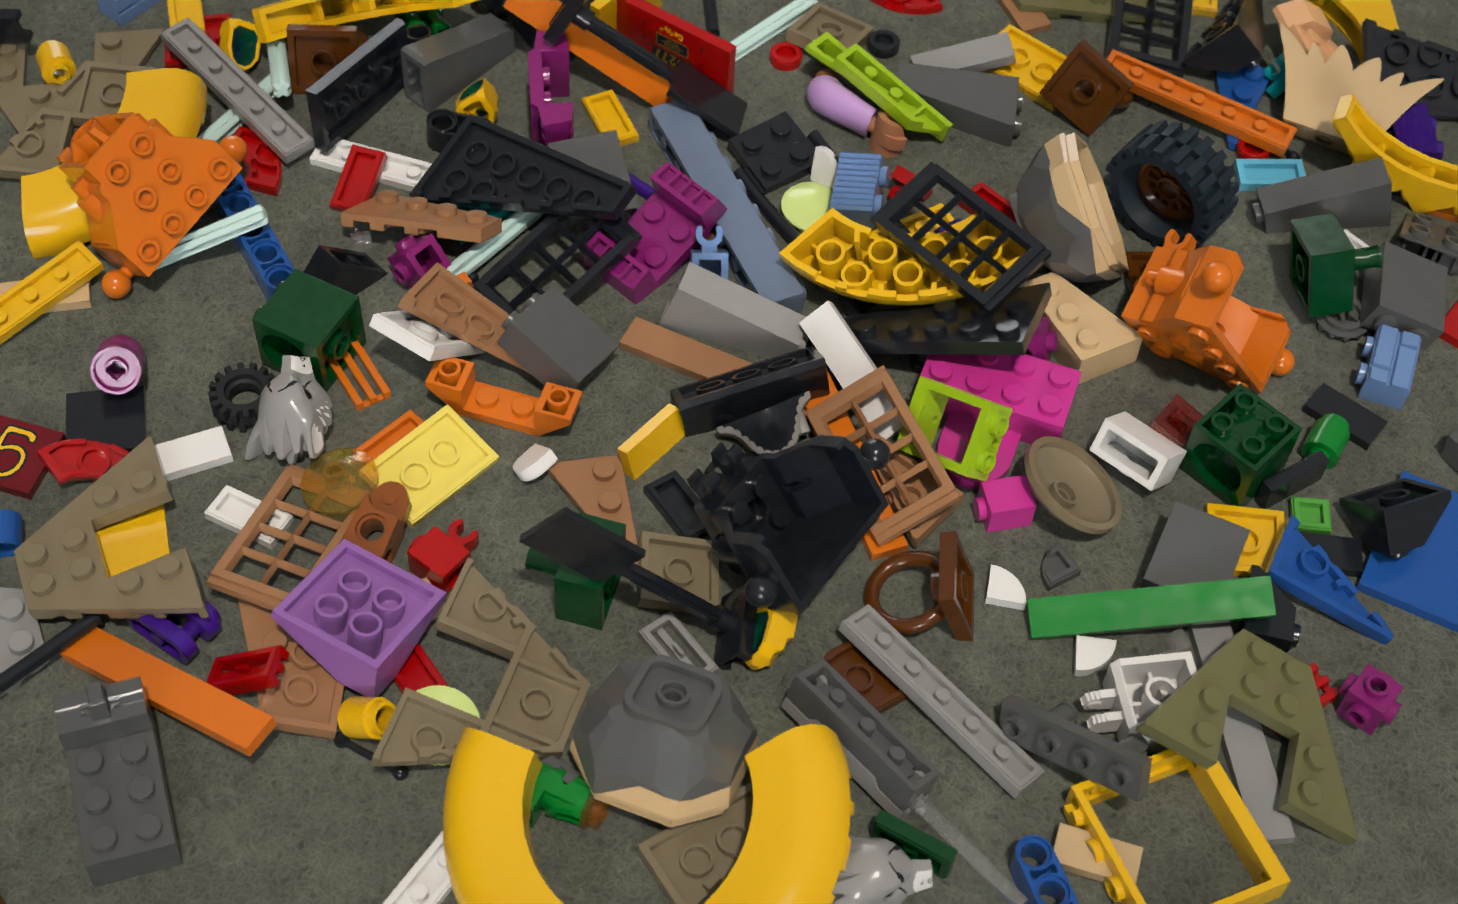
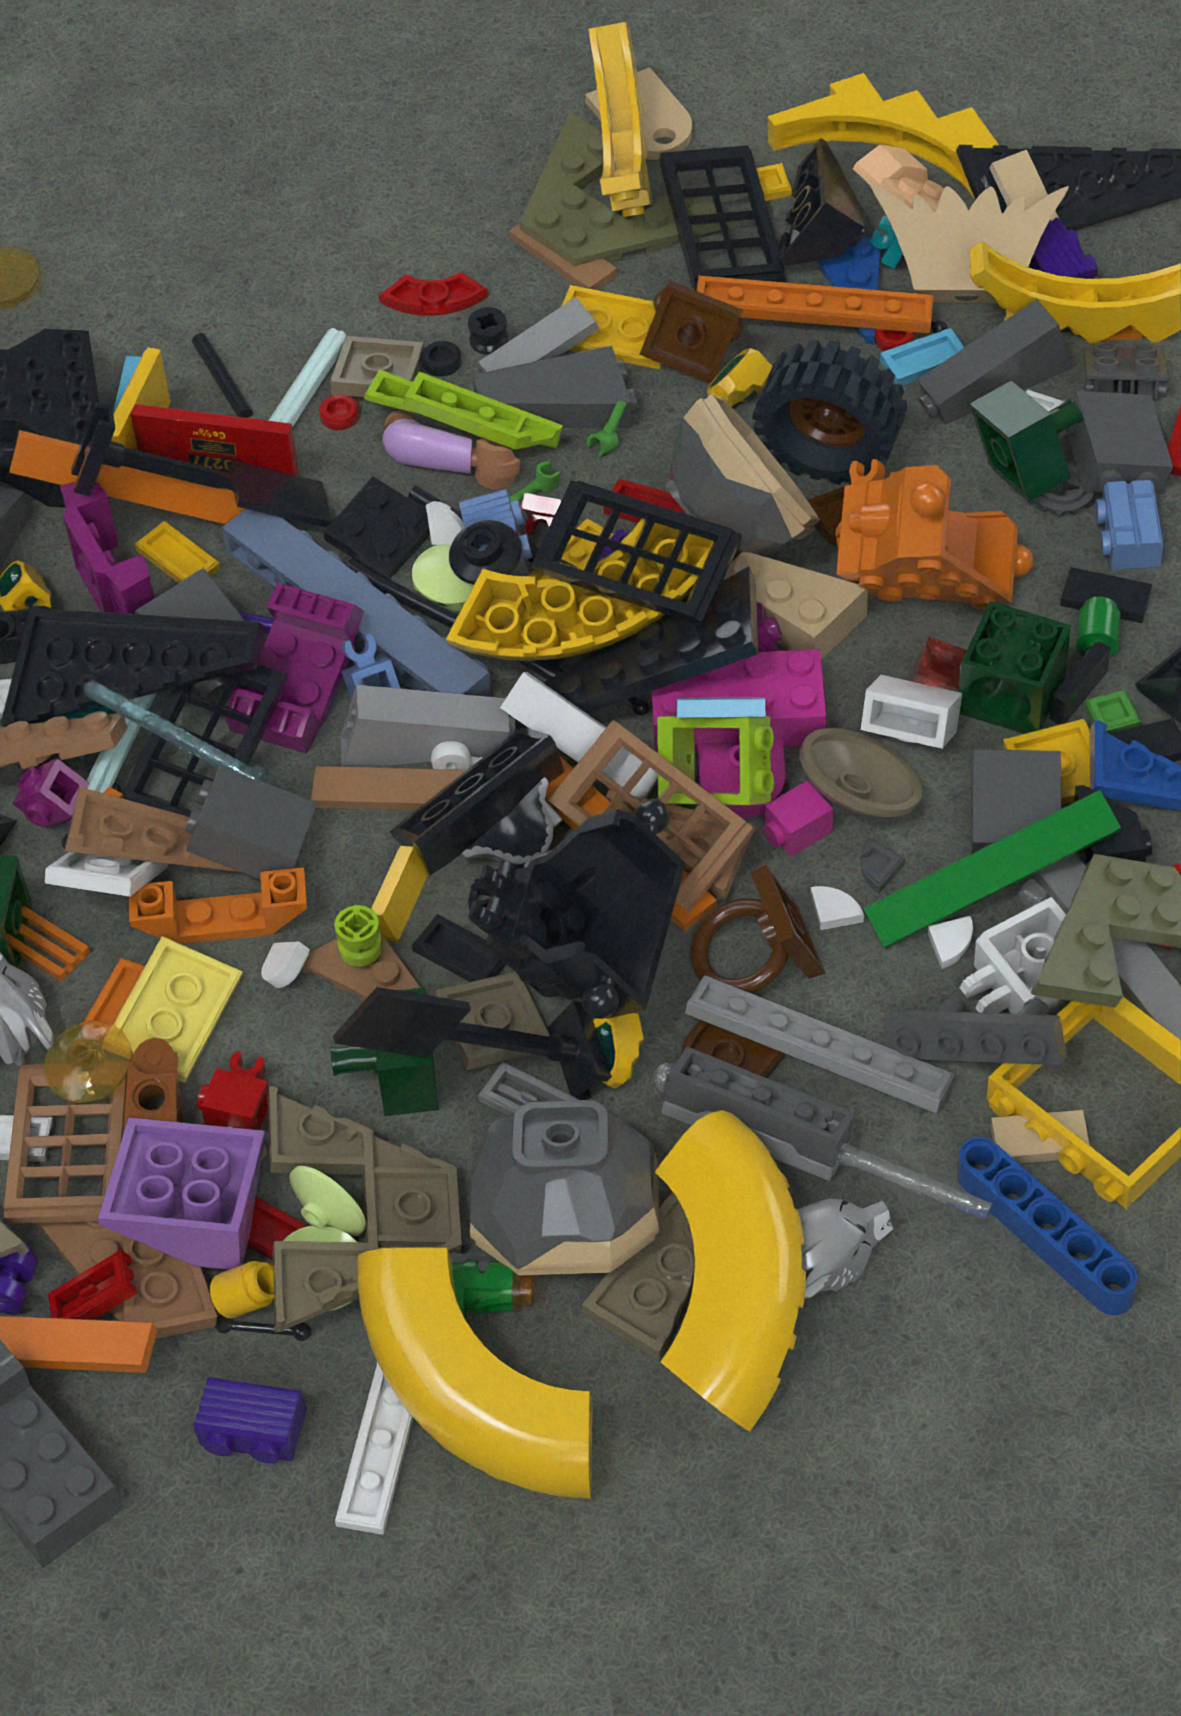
camera: 15 degrees left, 0 degrees up
(318, 831) = (249, 1420): none -> dark purple brick
(465, 672) = (326, 1201): none -> yellowish green dish
(531, 248) = (170, 732): none -> clear light blue bar
(599, 462) = (358, 935): none -> lime wheel
(746, 348) = (452, 756): none -> white piece
(853, 203) = (499, 556): none -> black piece
(915, 843) = (858, 1191): dark green tile -> none
(919, 163) = (542, 482): none -> bright green hand
(928, 34) = (487, 330): none -> black wheel
(974, 386) = (721, 707): none -> medium azure tile
(986, 147) = (607, 436): none -> bright green hand
(1111, 138) = (741, 377): none -> yellow rock
(1405, 58) = (1018, 177): none -> tan tile

